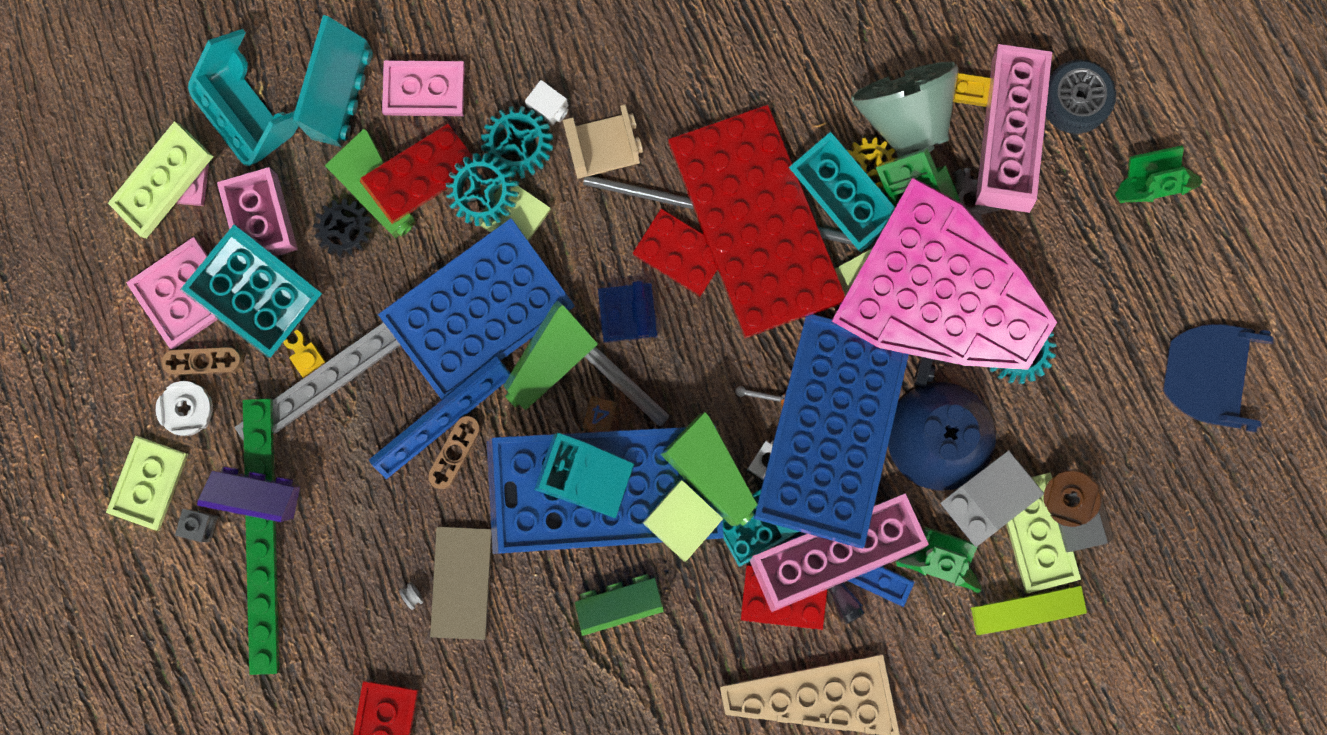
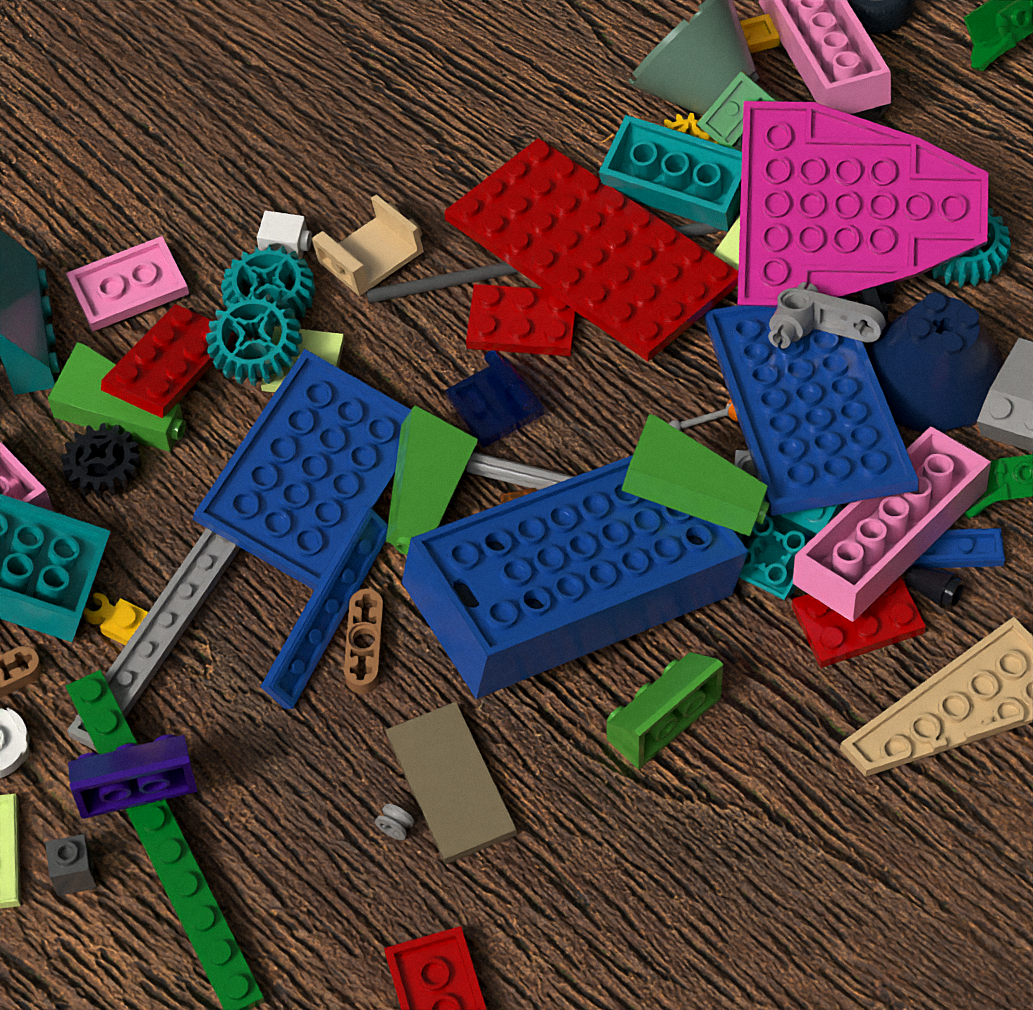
camera: 30 degrees left, 25 degrees down
(584, 475) = (541, 528): teal slope -> none
(682, 520) = (689, 541): yellowish green tile -> none
(878, 362) = (805, 309): none -> light grey piece

